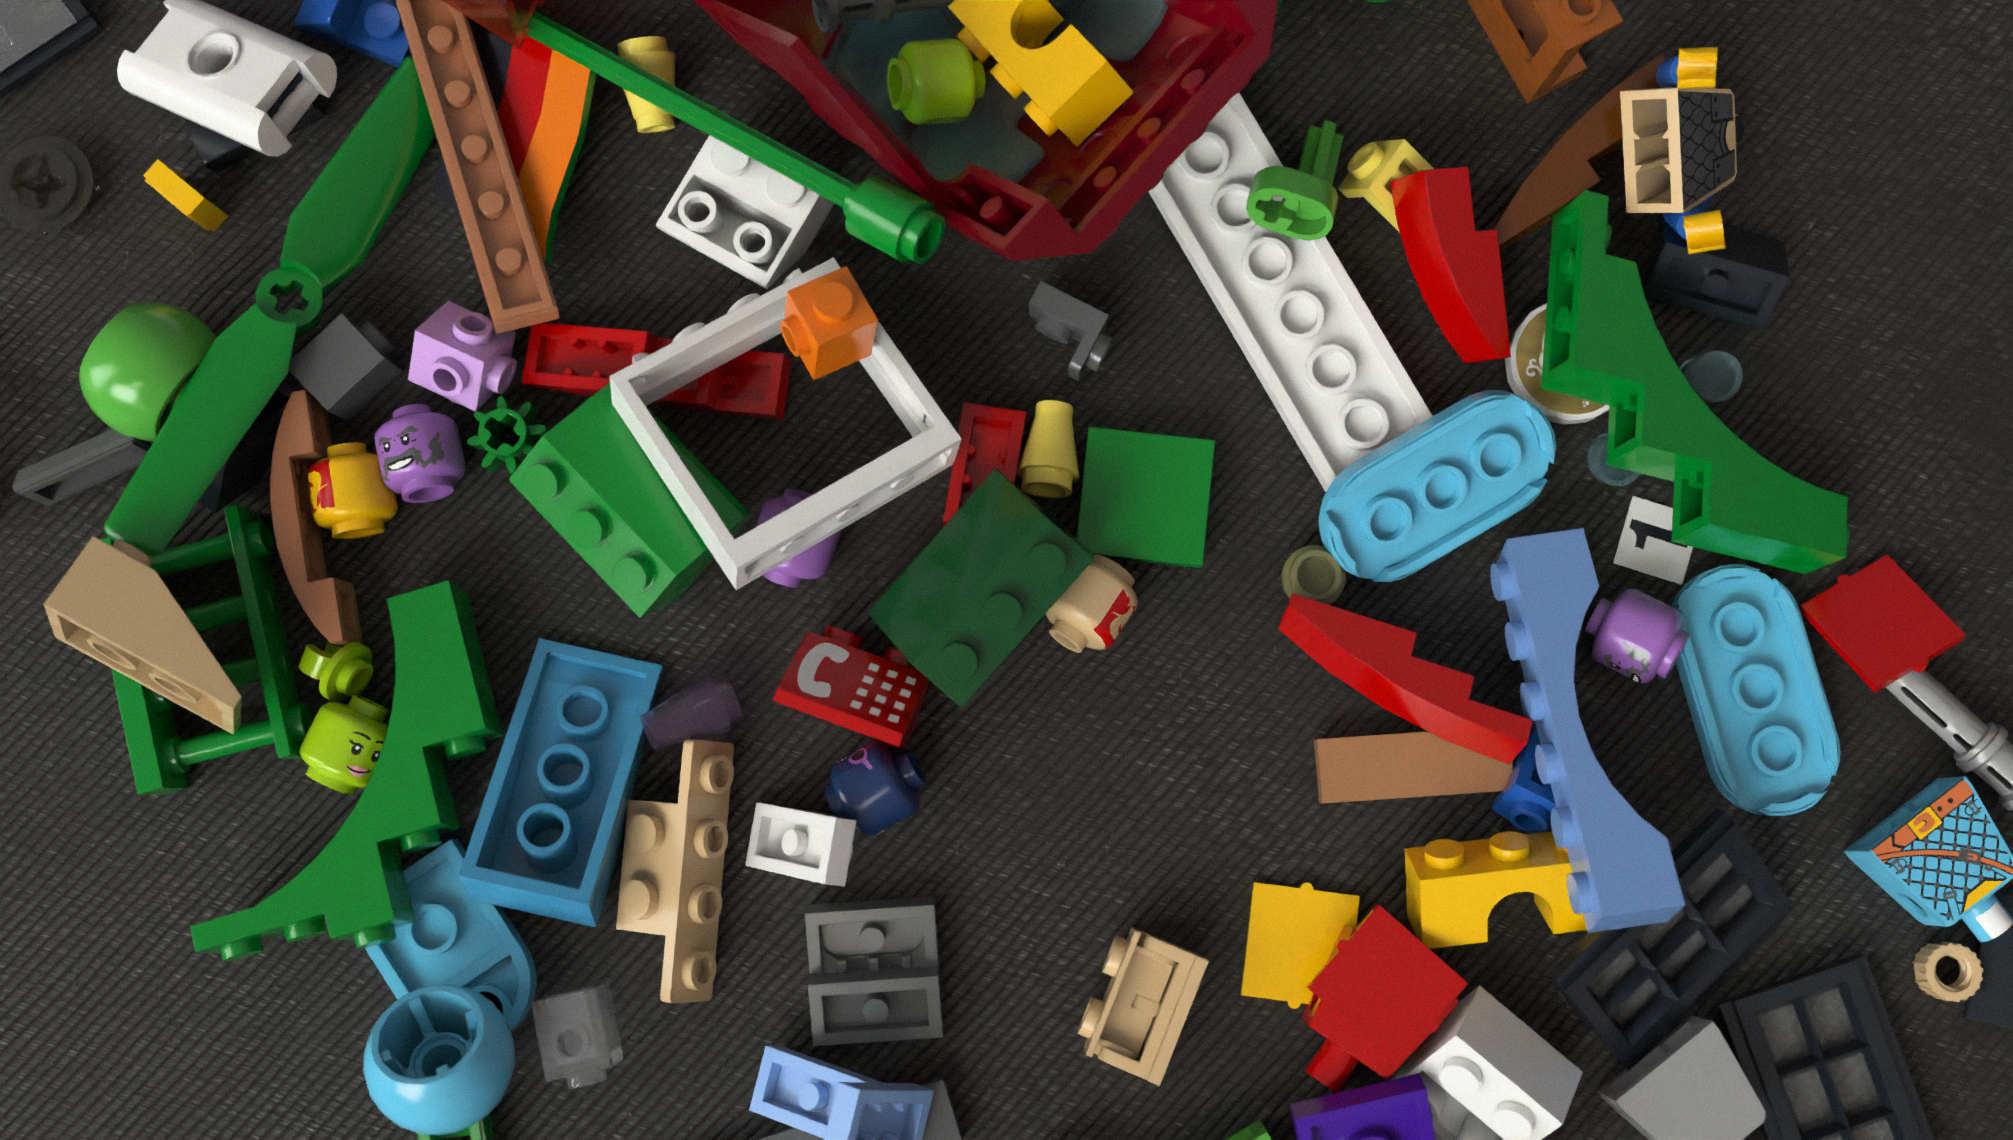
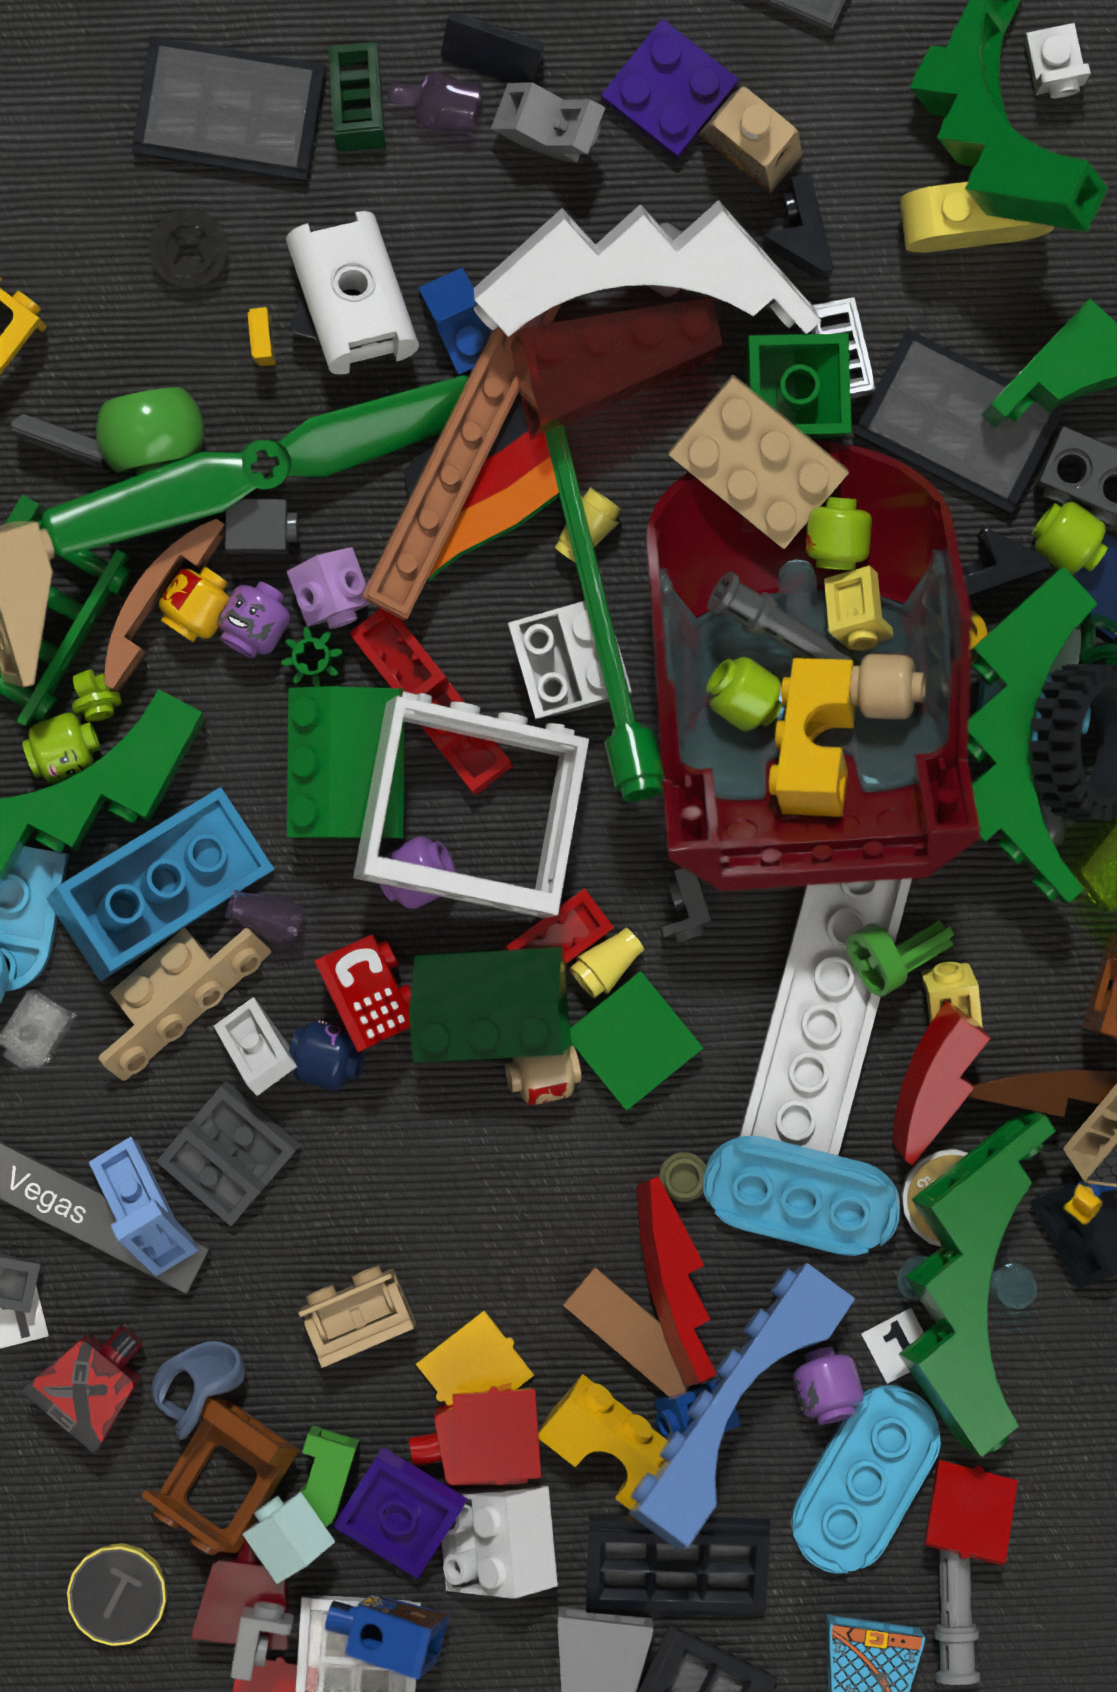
camera: 45 degrees right, 5 degrees up
(828, 323) = (545, 782): orange brick -> none

